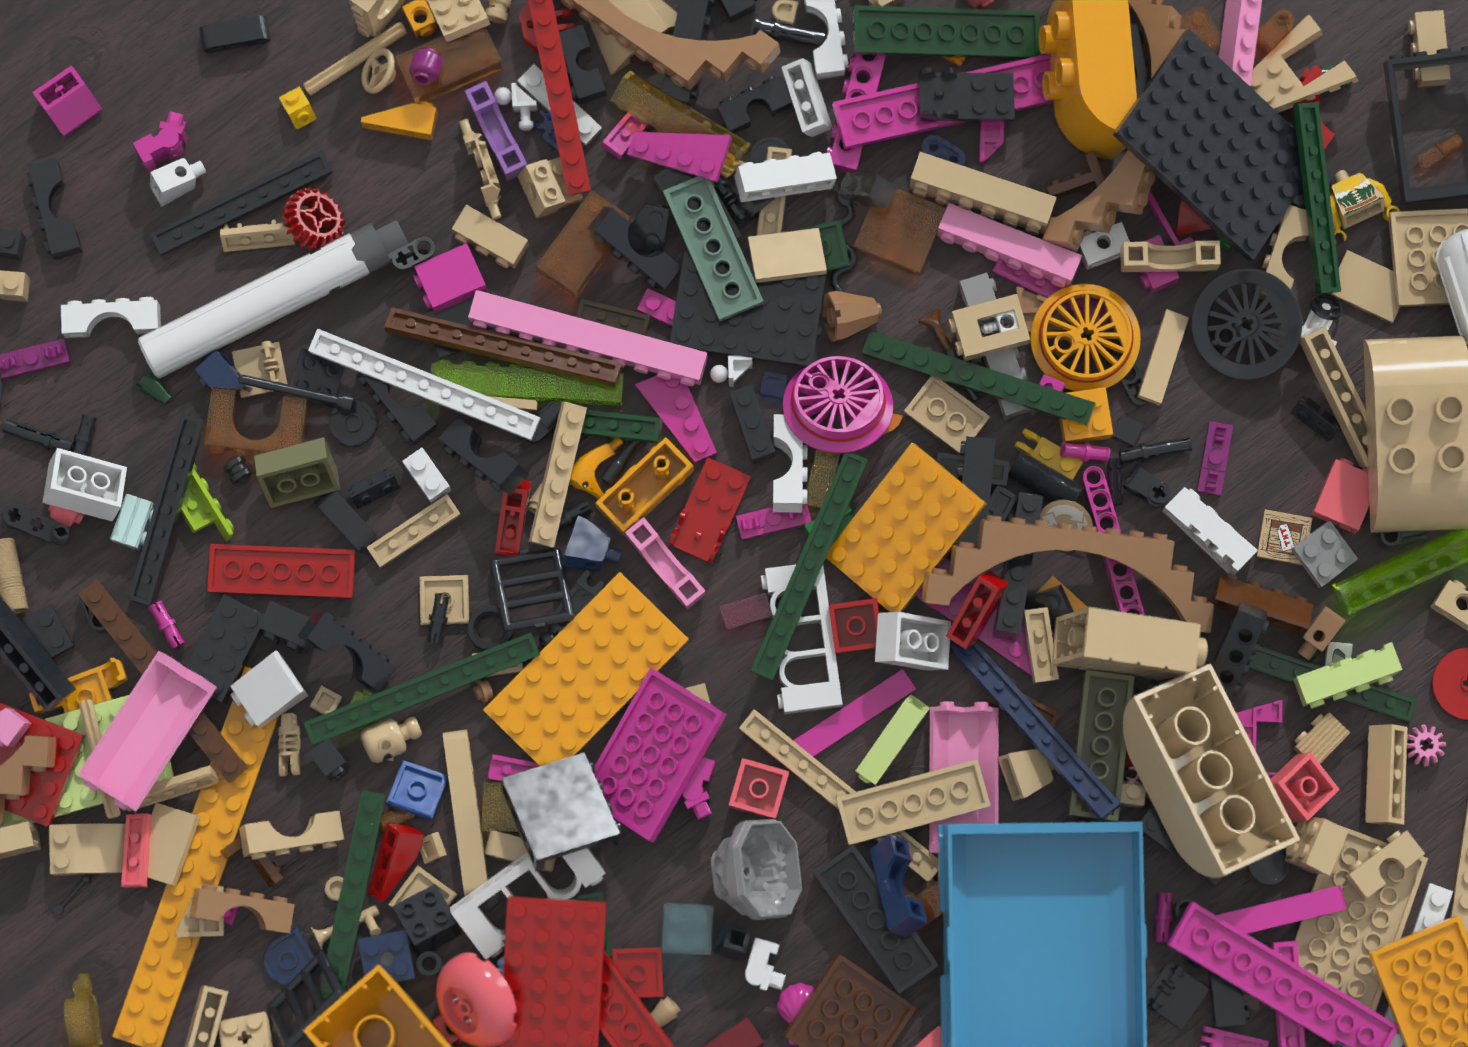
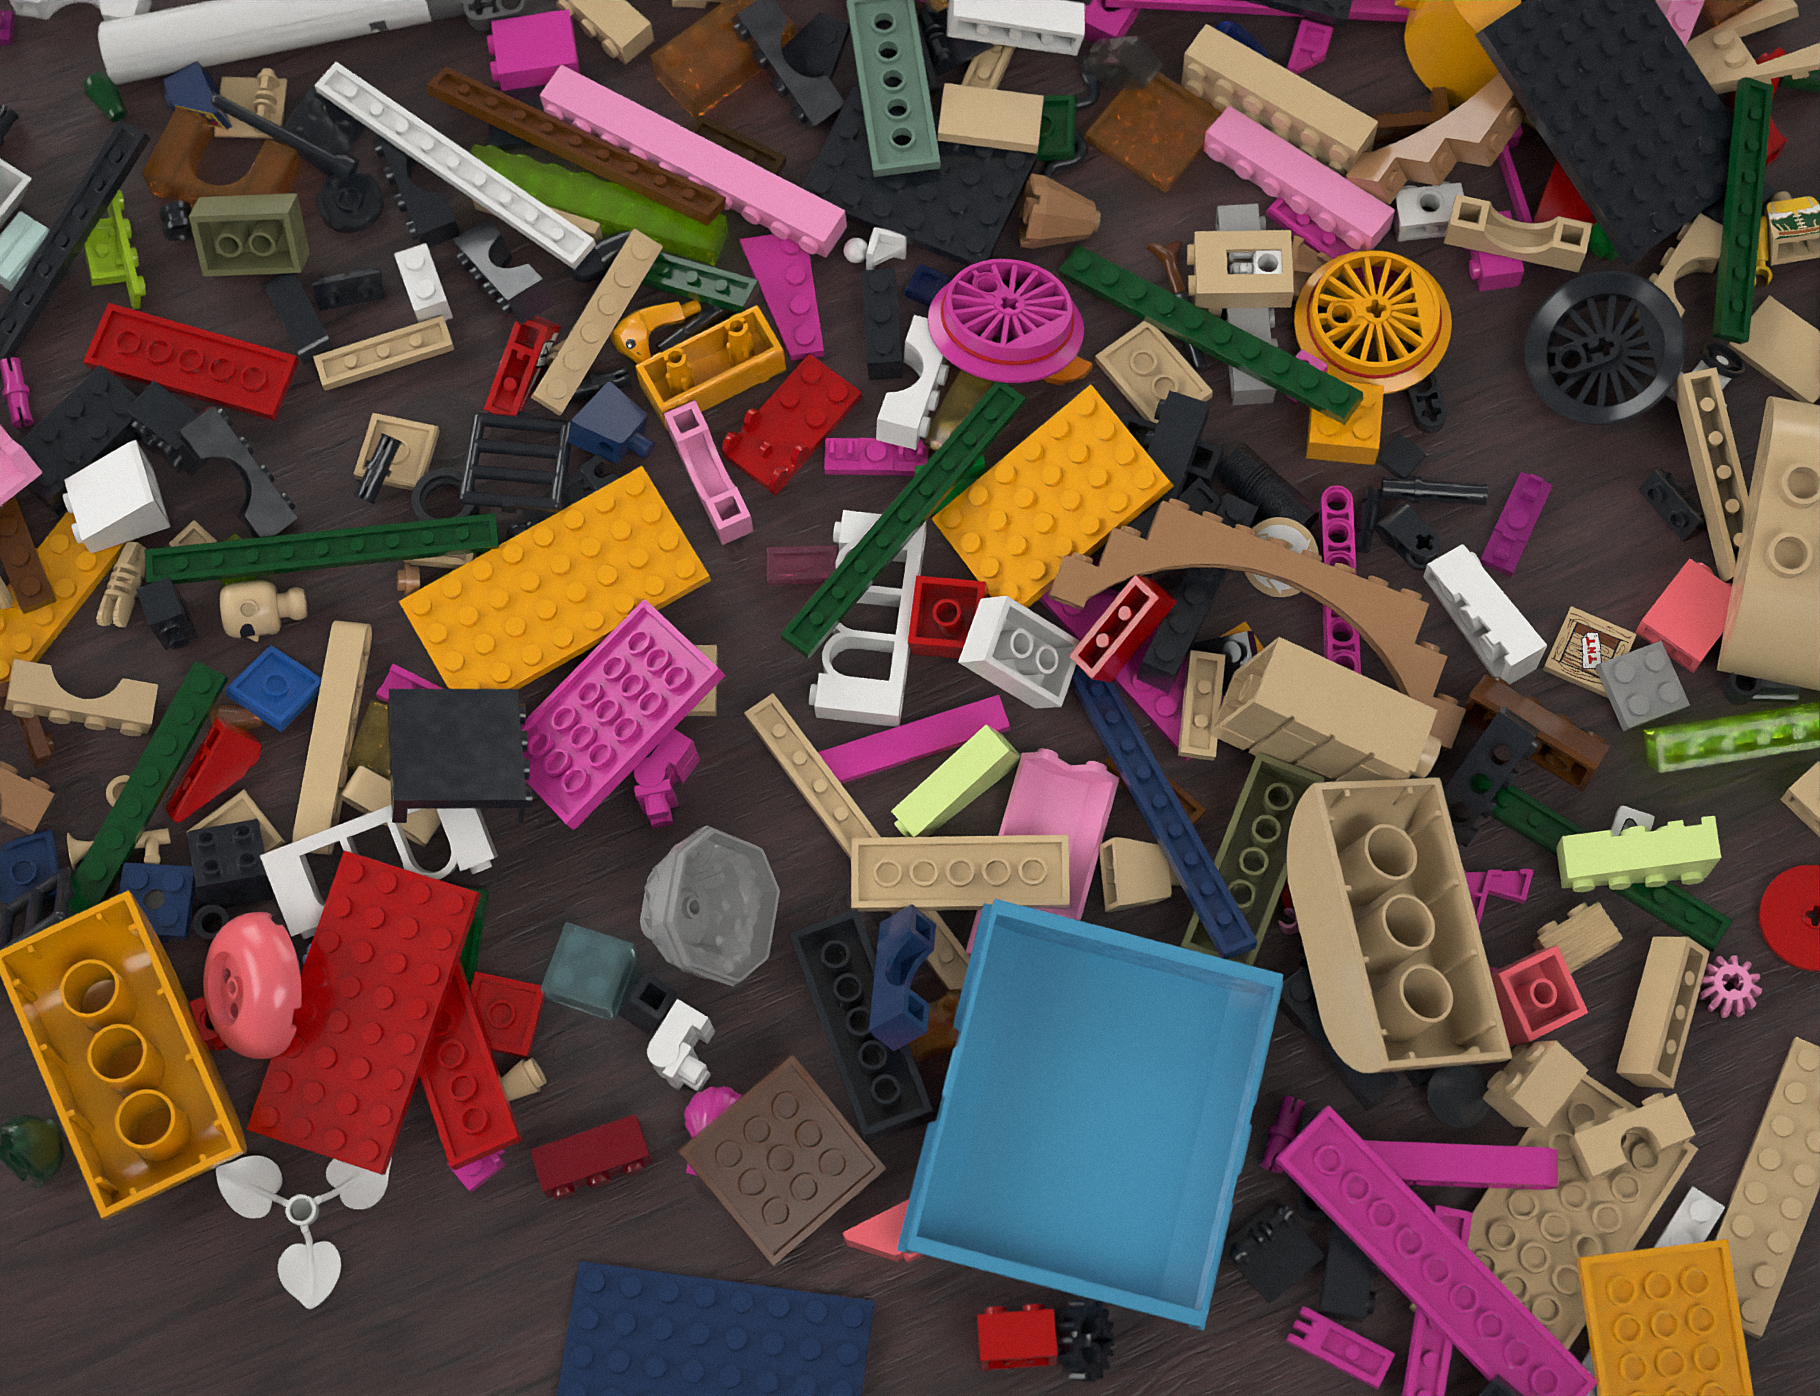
camera: 20 degrees right, 10 degrees down
(432, 848) = (270, 770): tan plate -> none
(658, 307) = (799, 149): dark pink plate -> none
(758, 789) = (747, 801): coral brick -> none
(1049, 454) = (1286, 461): yellow hinge -> none
(1085, 451) = (1333, 467): dark pink pin -> none
(1132, 794) = (1280, 946): tan brick -> none
(1163, 357) = (1475, 372): tan tile -> none
(1329, 624) = (1624, 776): medium nougat torso -> none

